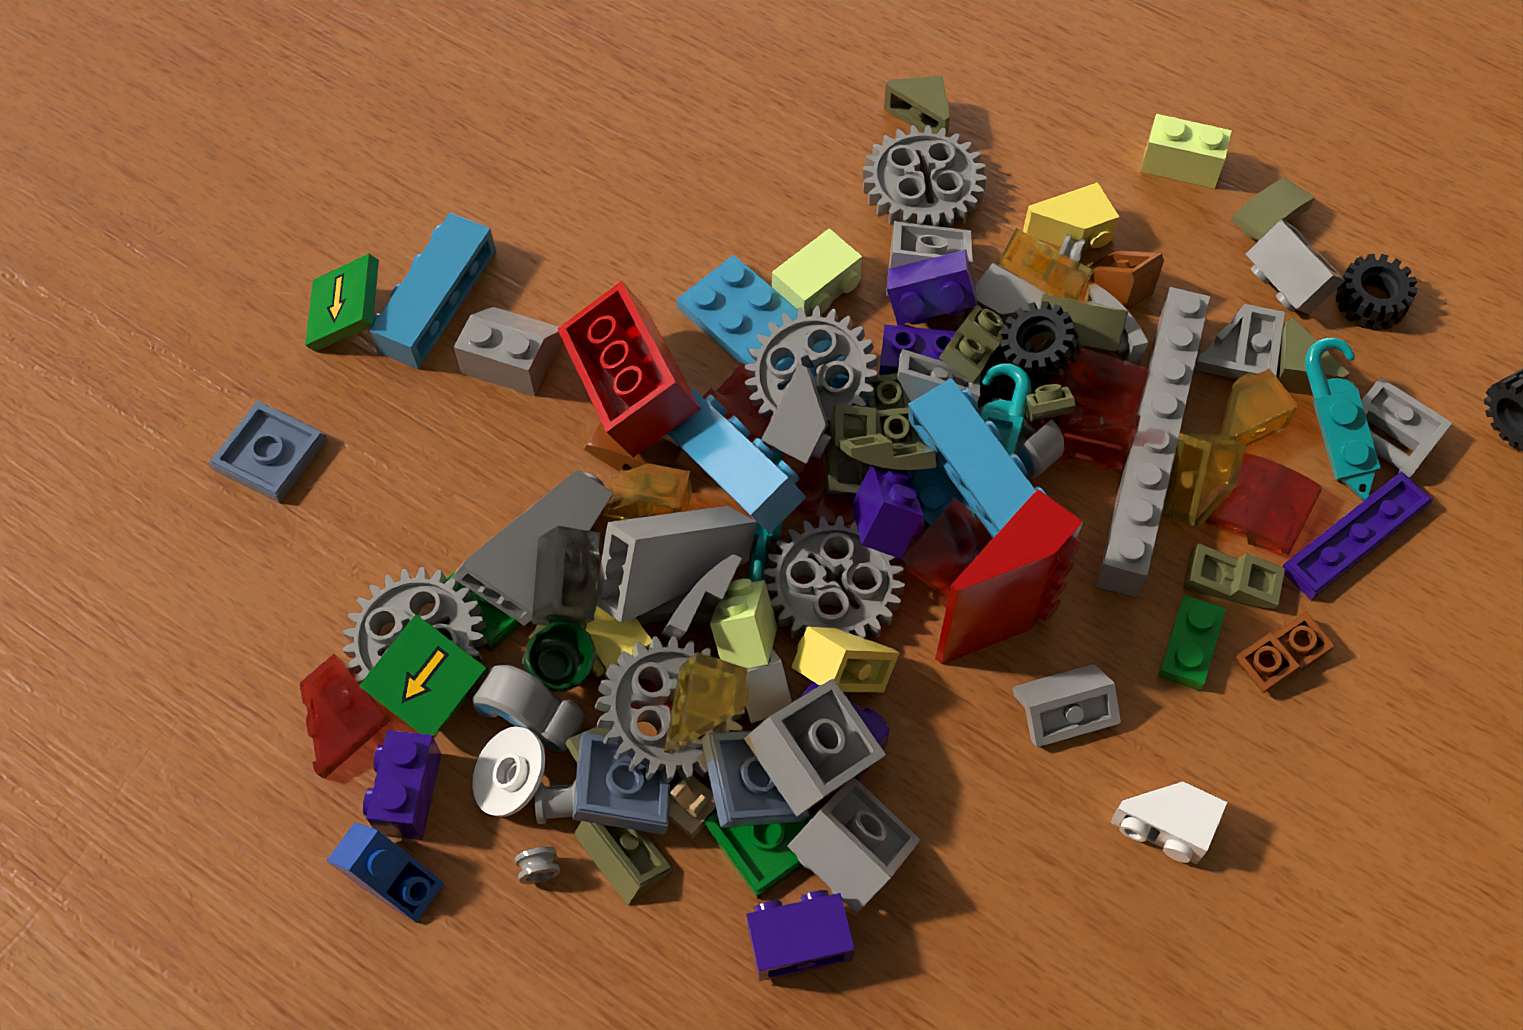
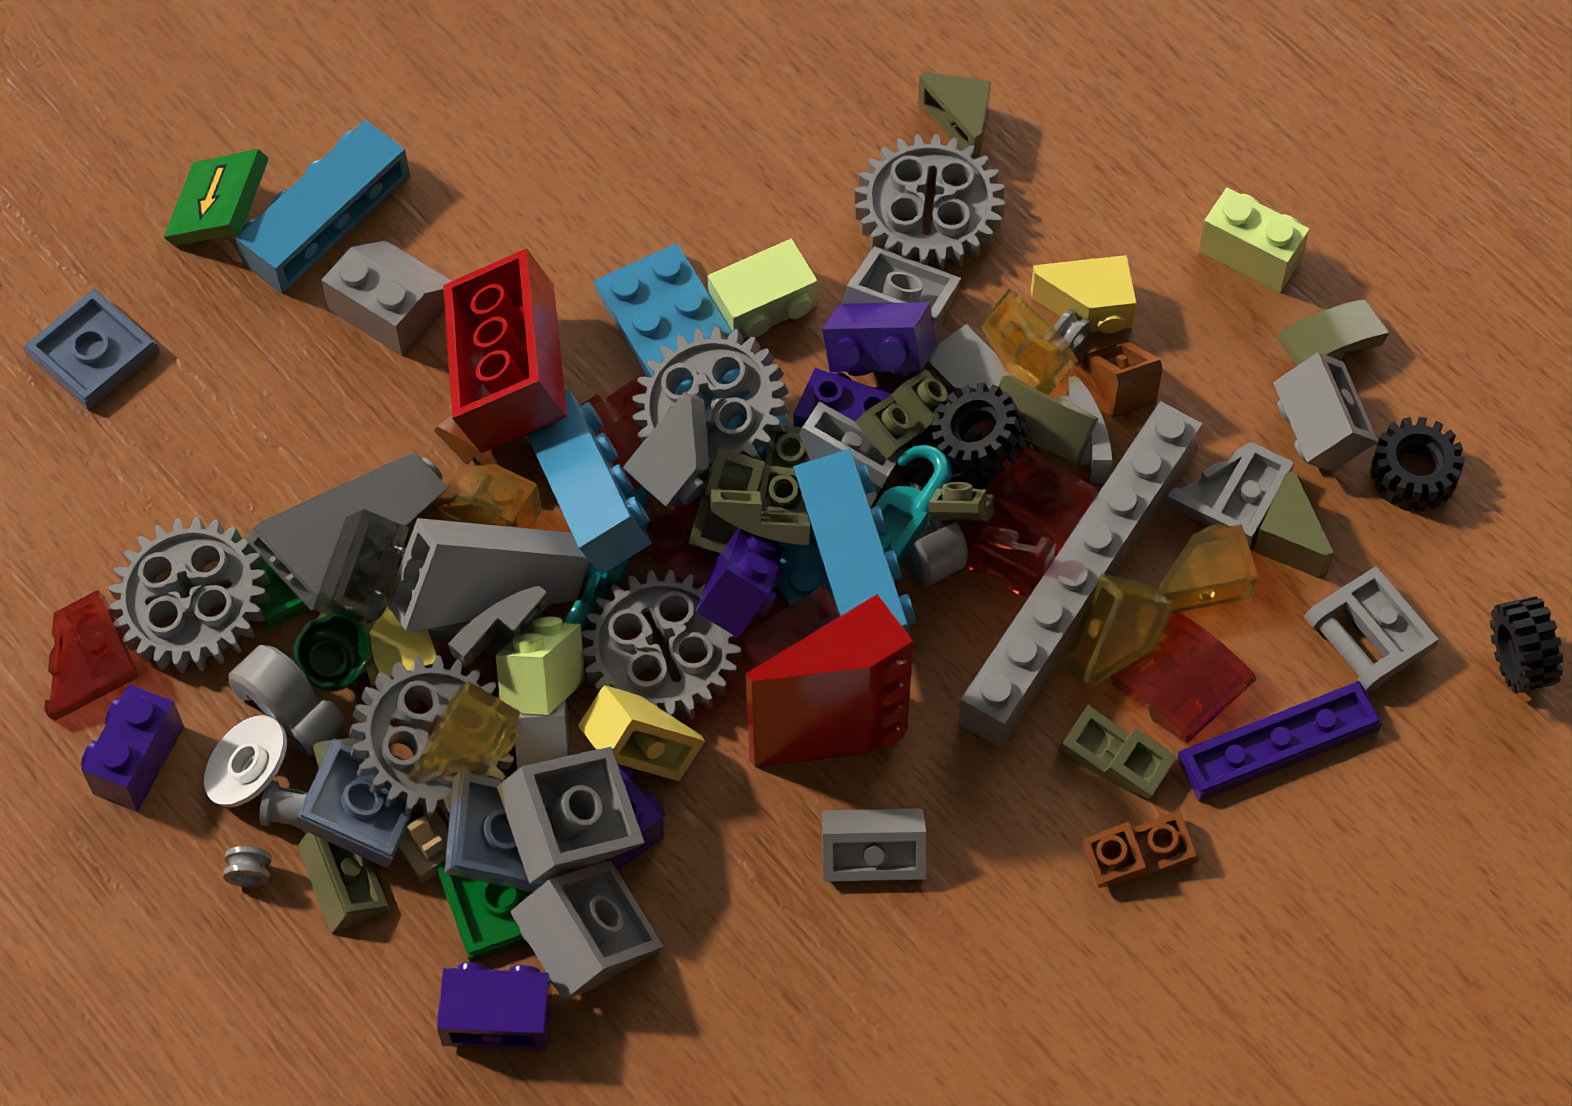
camera: 15 degrees right, 0 degrees up
(385, 871) = (88, 832): blue slope -> none
(423, 677) = (183, 638): green tile -> none
(1174, 818) = (942, 992): white slope -> none
(1192, 642) = (1041, 812): green plate -> none
(1342, 420) = (1305, 603): teal plate -> none

